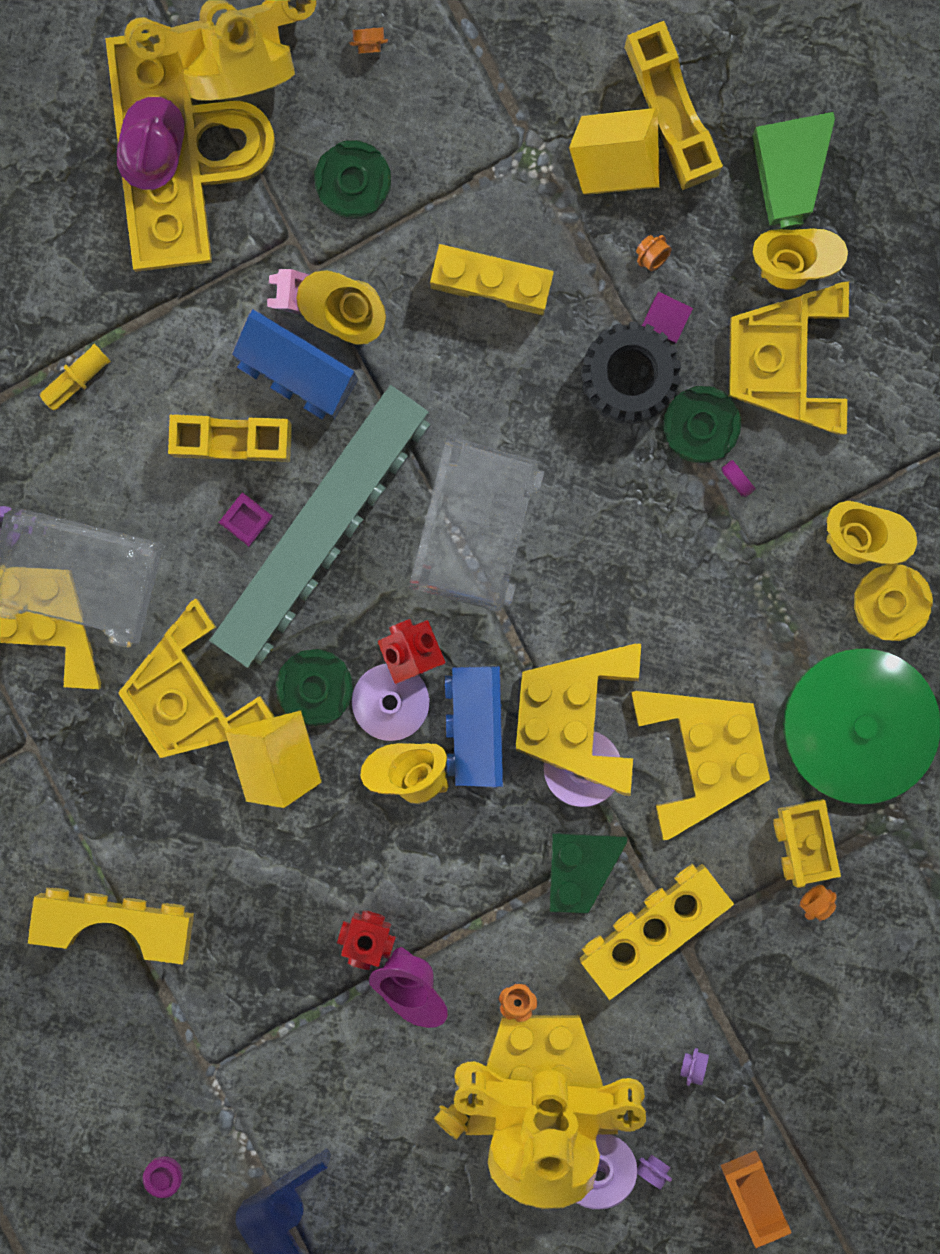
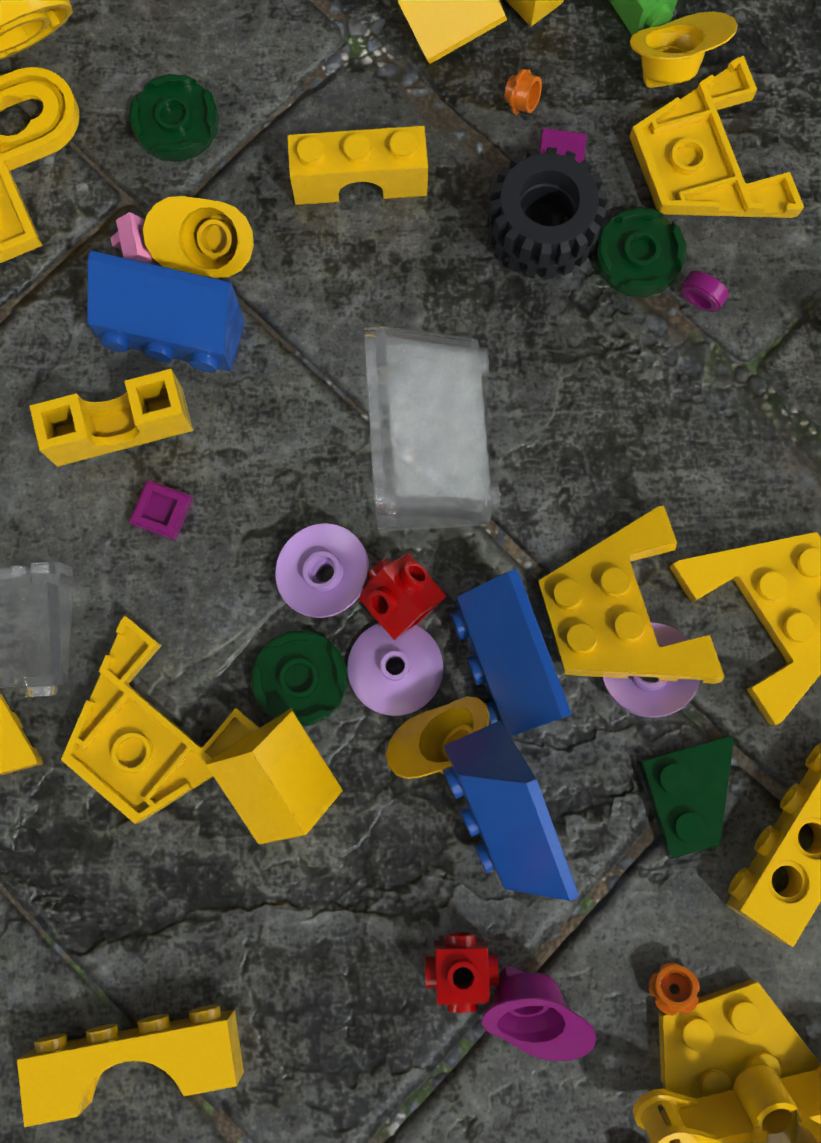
camera: 15 degrees left, 10 degrees down
(320, 527) = (248, 492): sand green brick -> none
(344, 598) = (306, 558): none -> lavender dish
(432, 840) = (507, 814): none -> blue slope

